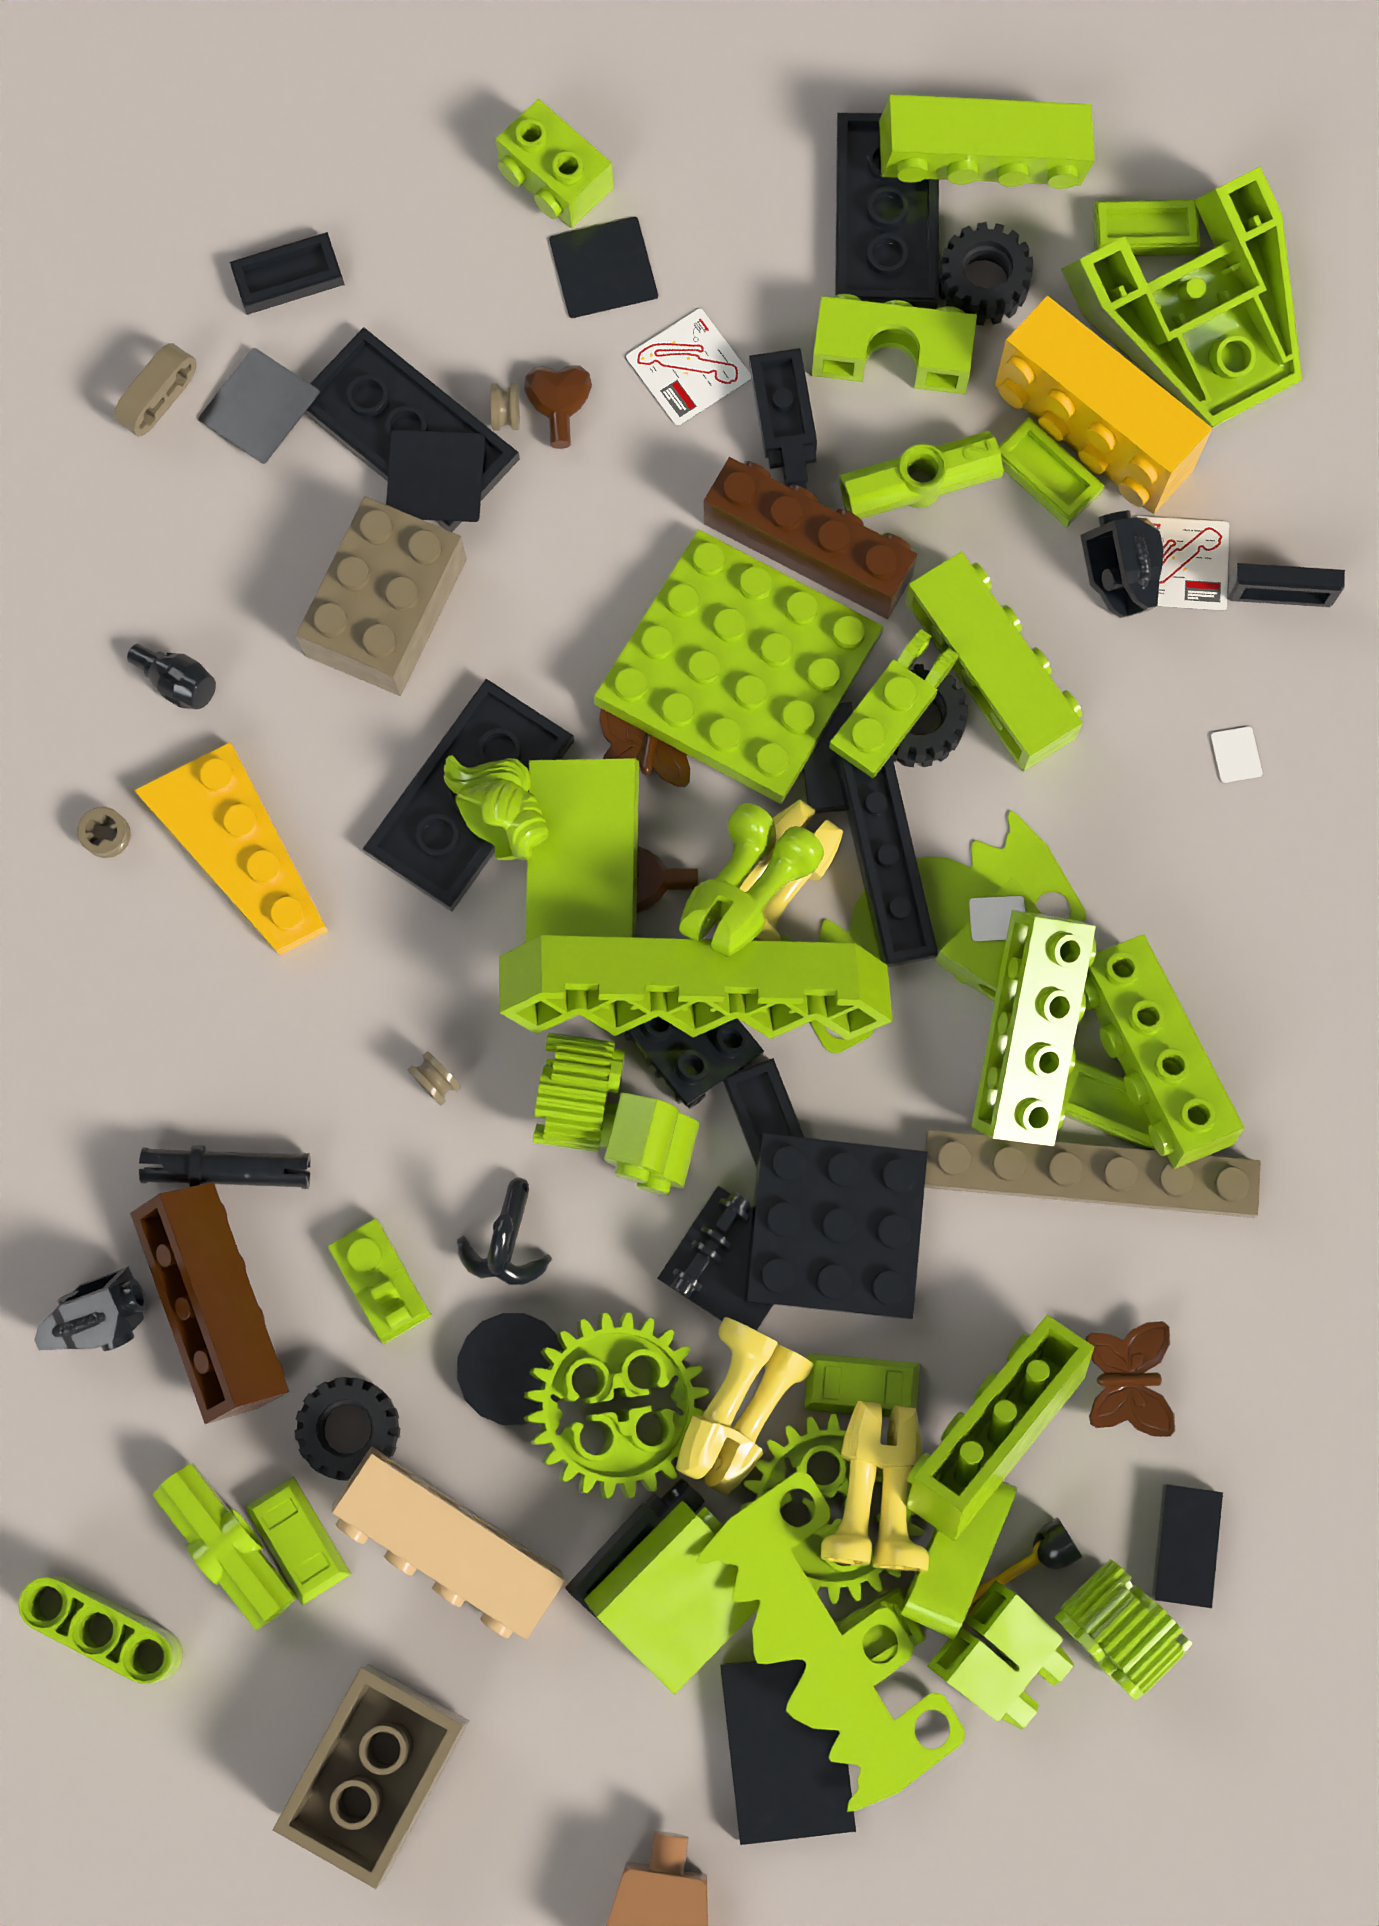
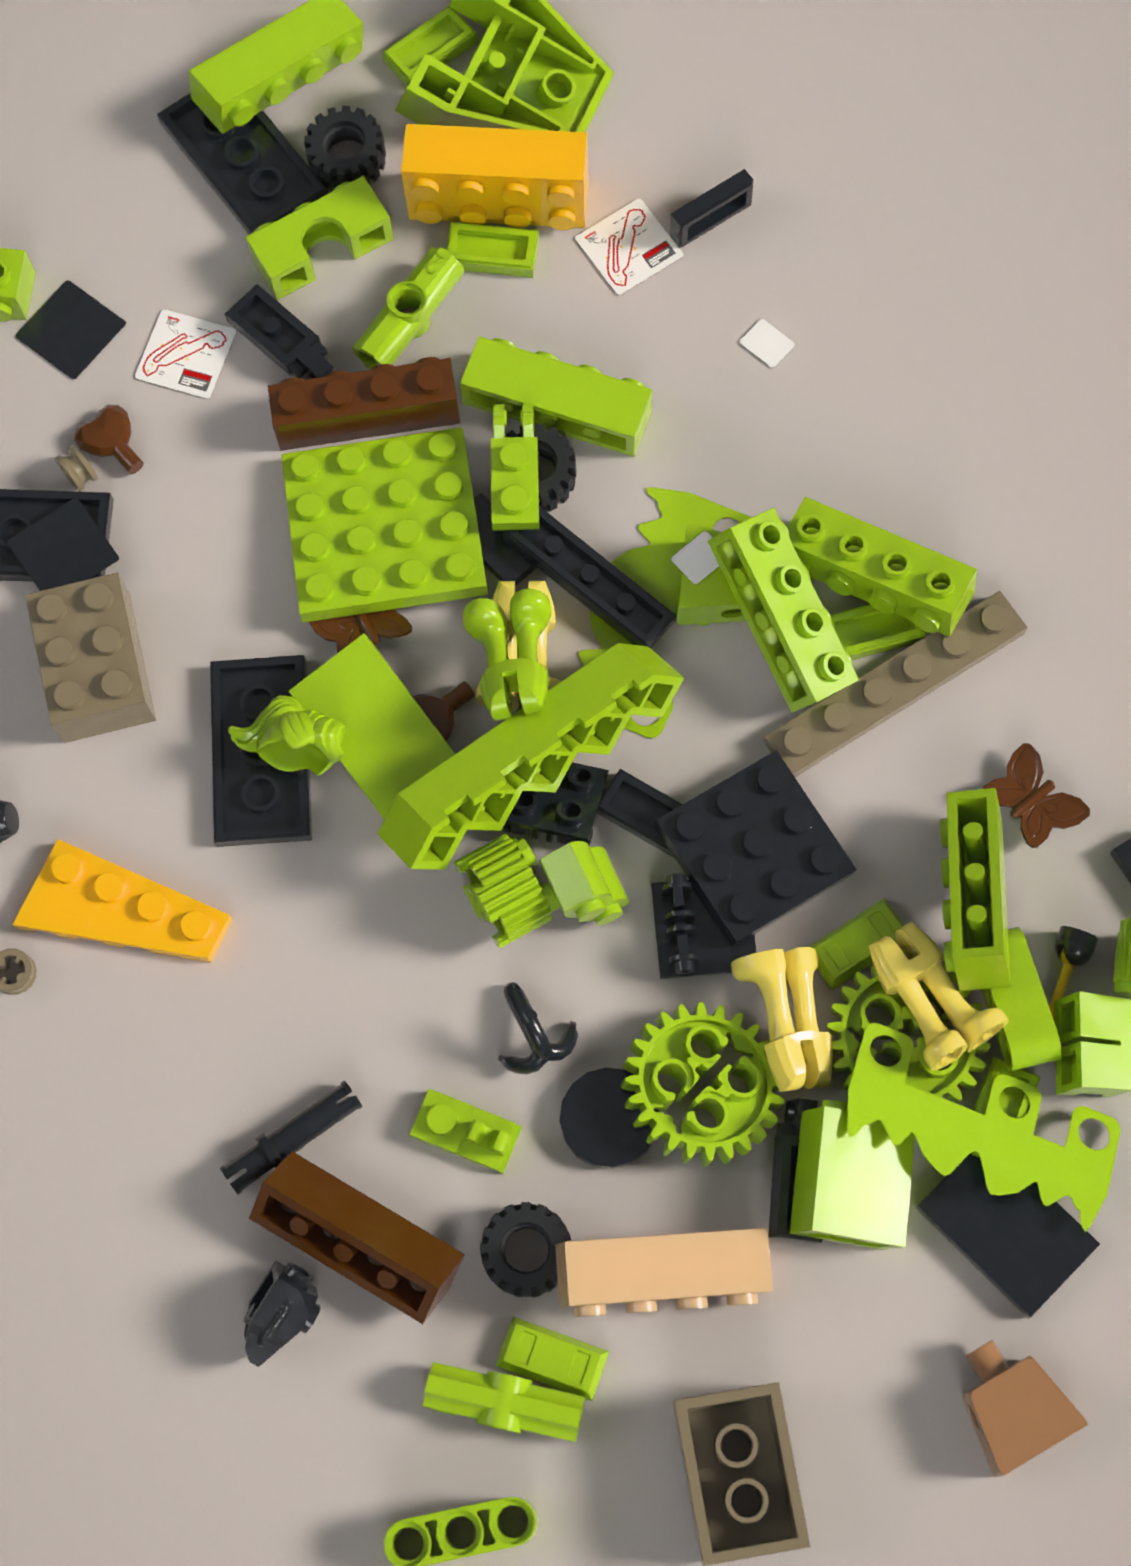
camera: 35 degrees left, 5 degrees down
(434, 1078) = (393, 960): dark tan bush -> none
(1124, 562) = (594, 268): black hand -> none

